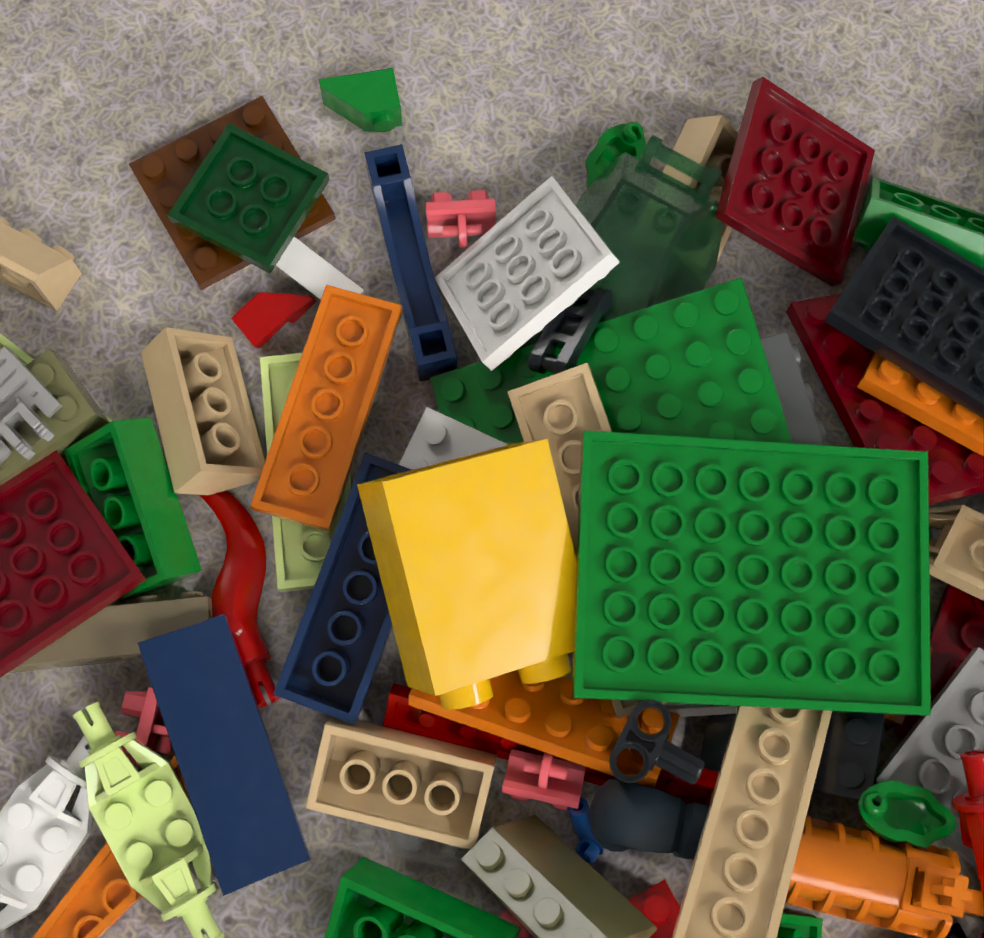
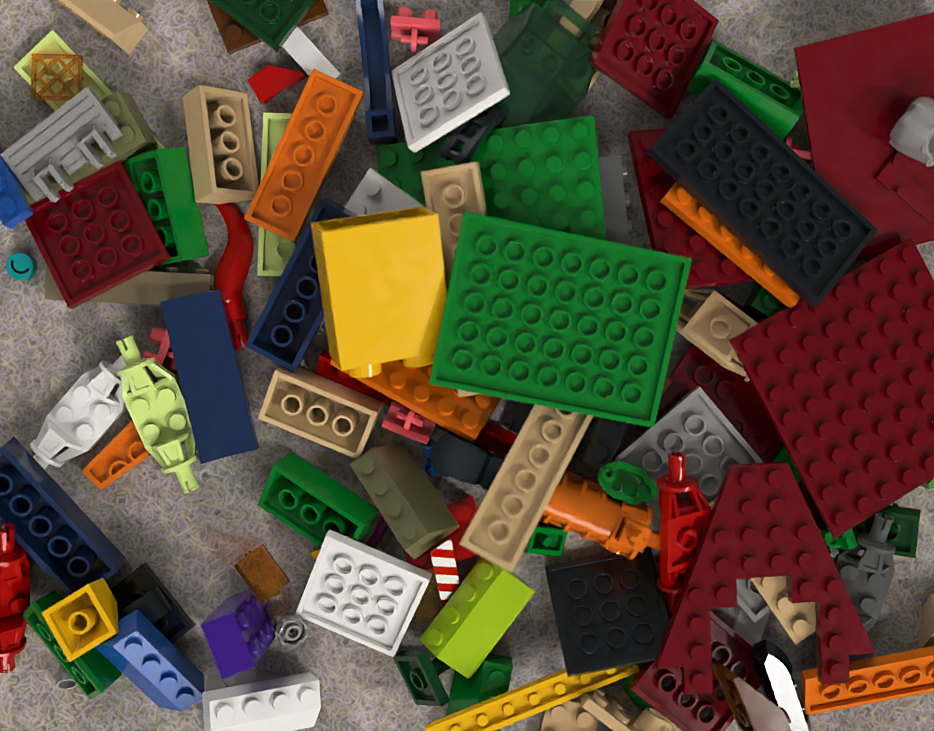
camera: 15 degrees right, 15 degrees up
(655, 749) = (474, 422): black beam -> none

